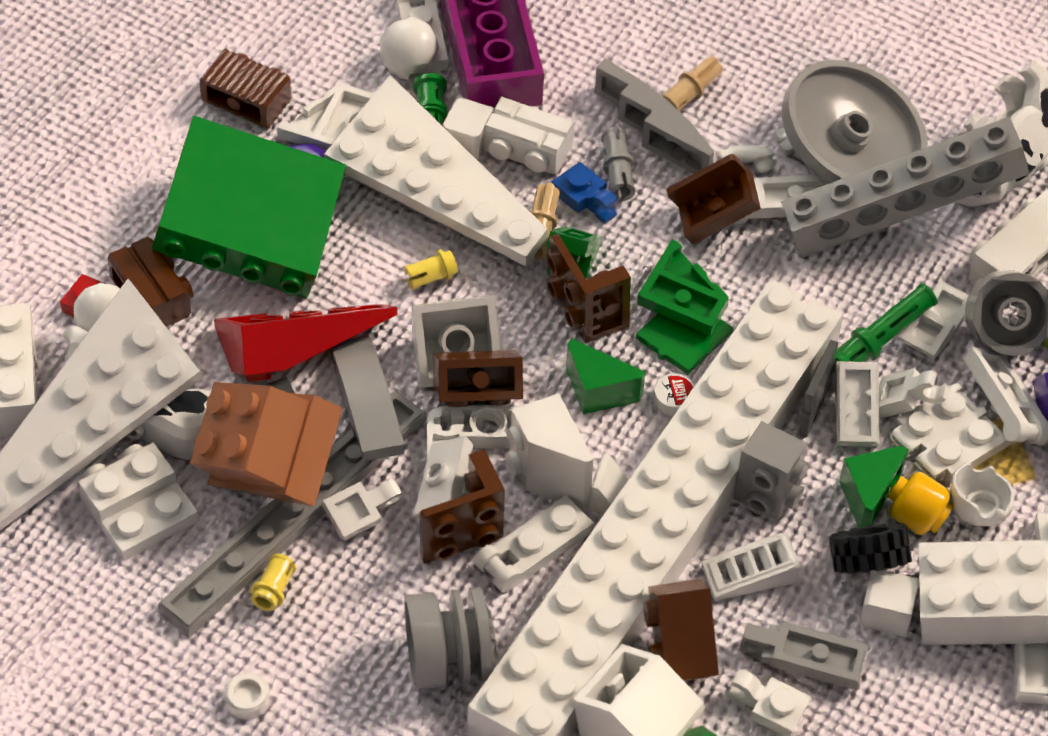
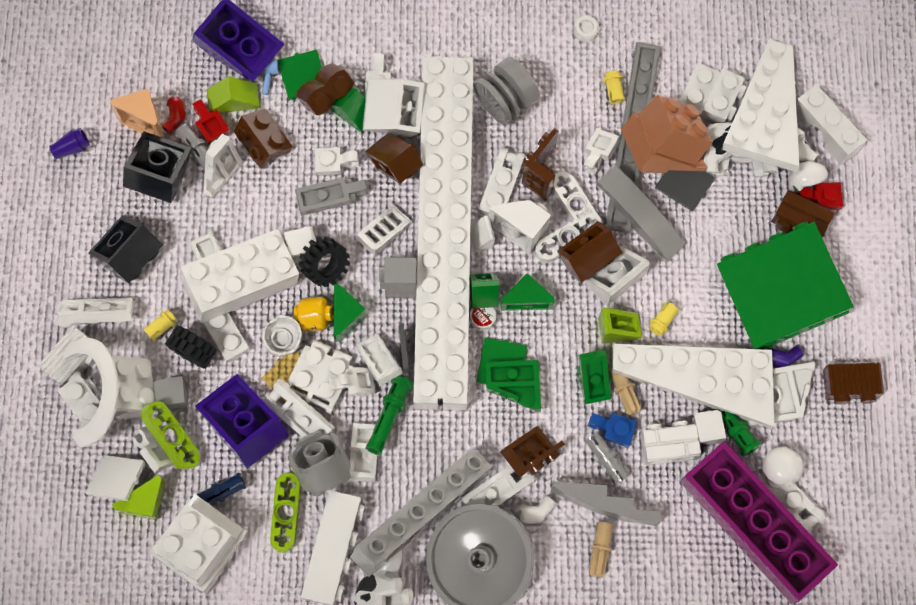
camera: 150 degrees right, 20 degrees up
(270, 344) = (708, 226): red wedge -> none
(444, 473) = (566, 178): white plate -> none
(506, 280) = (618, 325): none -> lime slope
(592, 304) = (565, 328): reddish brown bracket -> none
(651, 410) = (484, 290): none -> green slope

